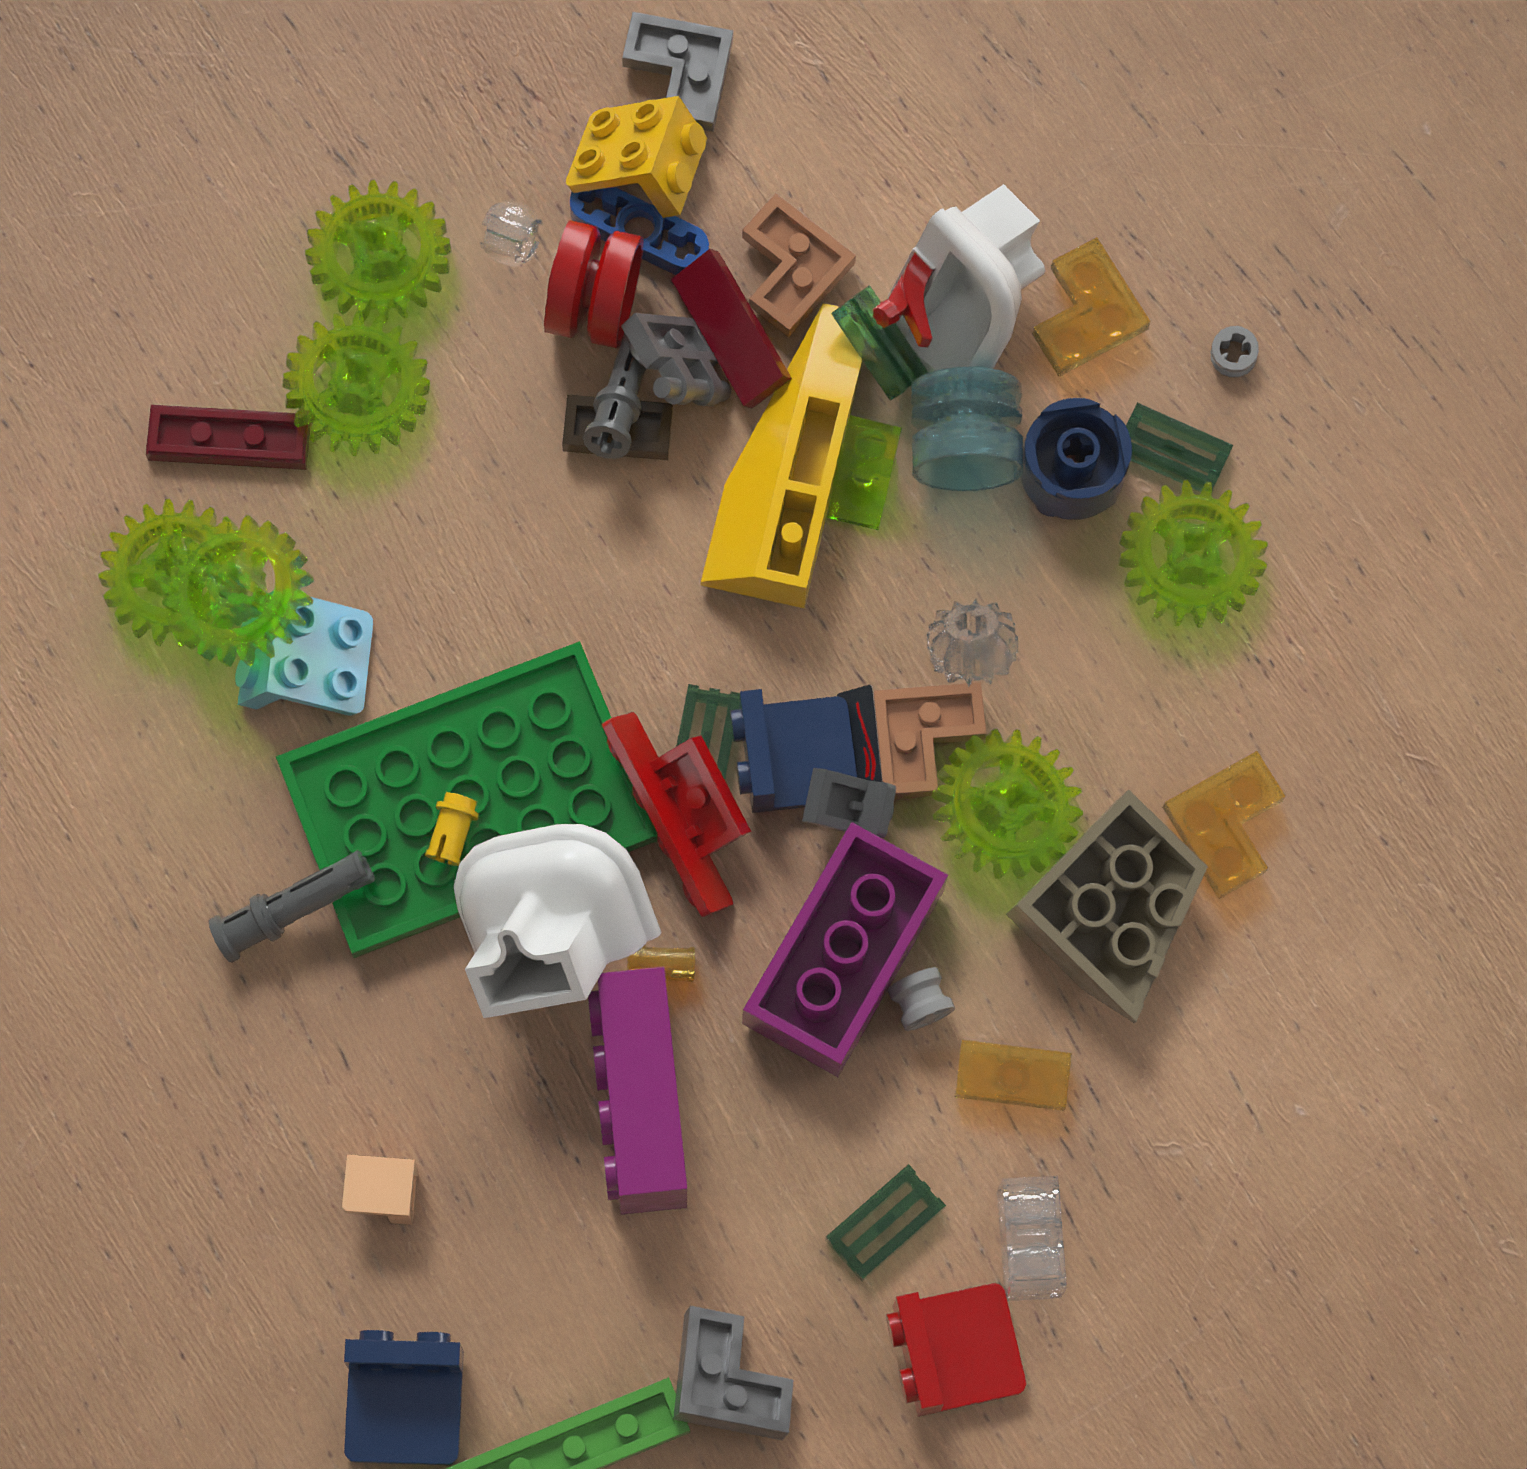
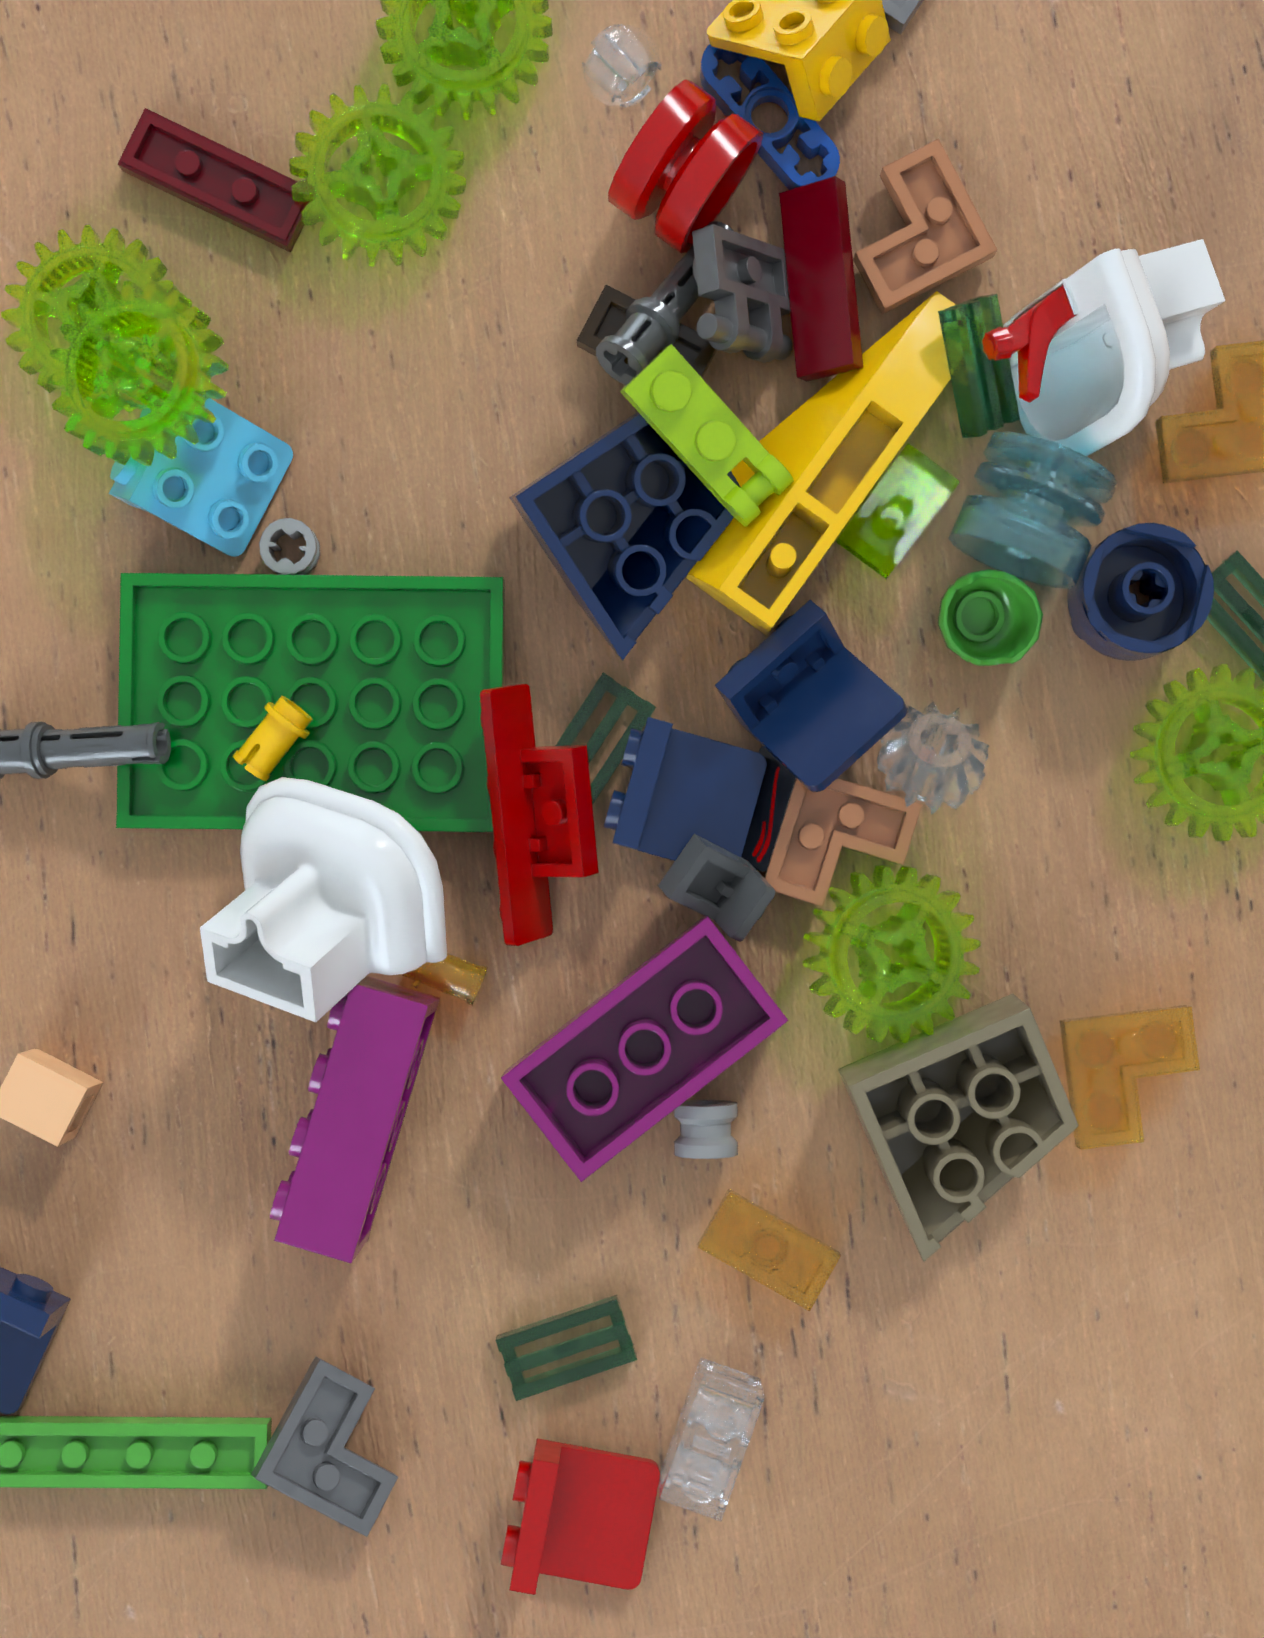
camera: 25 degrees right, 15 degrees up
(396, 673) = (294, 529): none -> light grey bush
(661, 555) = (623, 526): none -> dark blue wedge
(695, 466) = (705, 433): none -> lime plate
(857, 636) = (810, 699): none -> dark blue bracket
(970, 522) = (989, 618): none -> bright green hair

